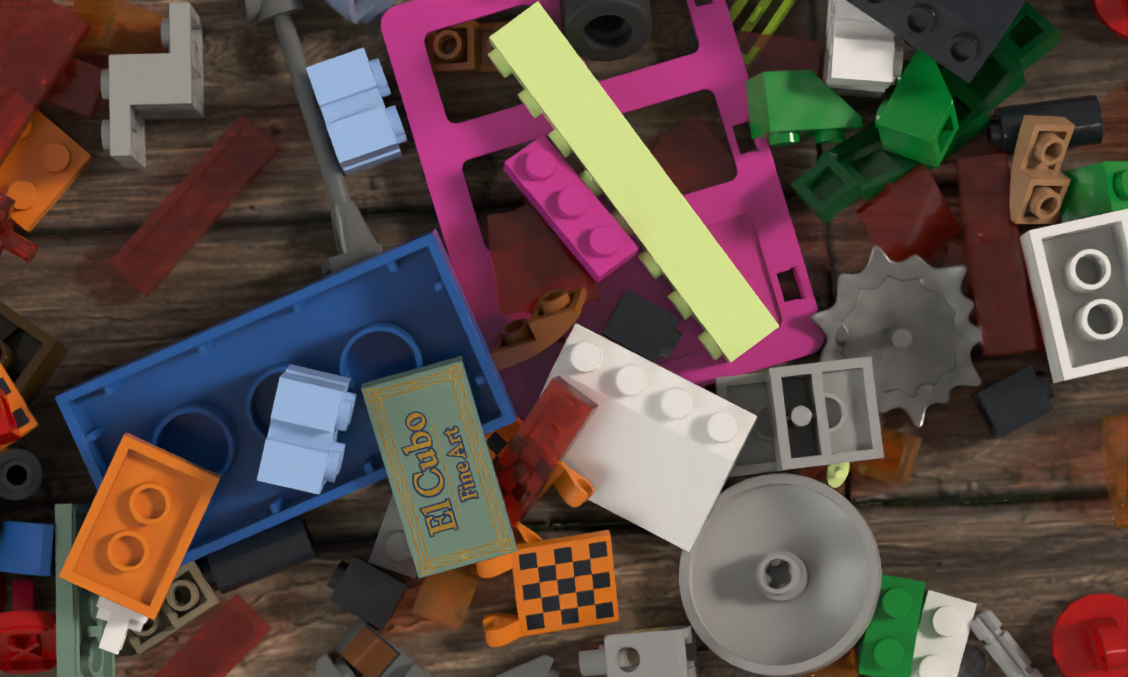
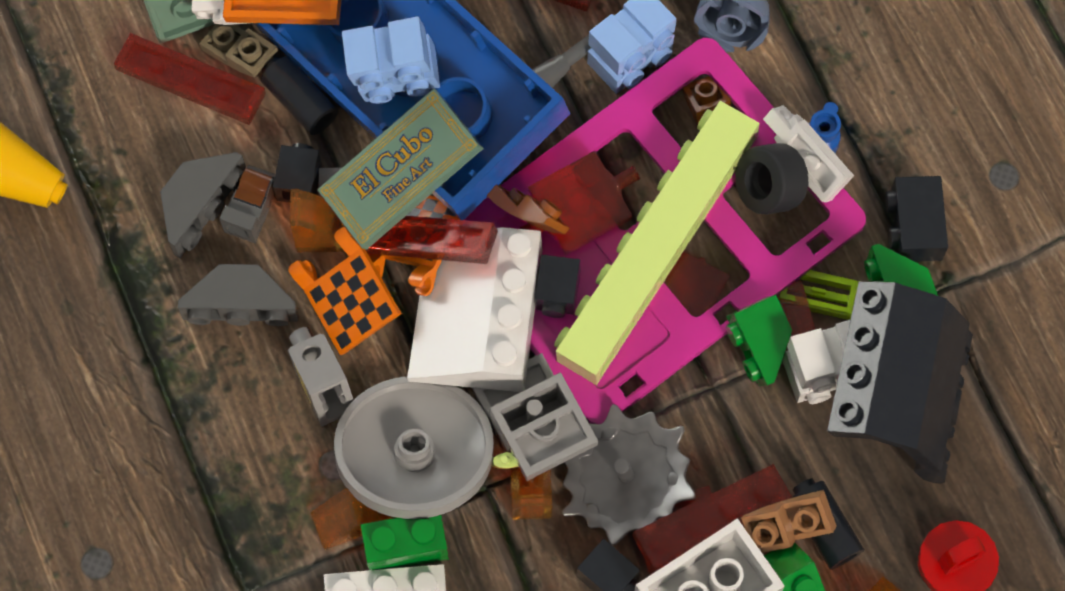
camera: 70 degrees right, 15 degrees down
(570, 208) = (621, 202): dark pink plate -> none
(861, 164) = (790, 438): dark green piece -> none
(909, 217) = (715, 446): clear red piece -> none
(920, 113) = (792, 420): green slope -> none

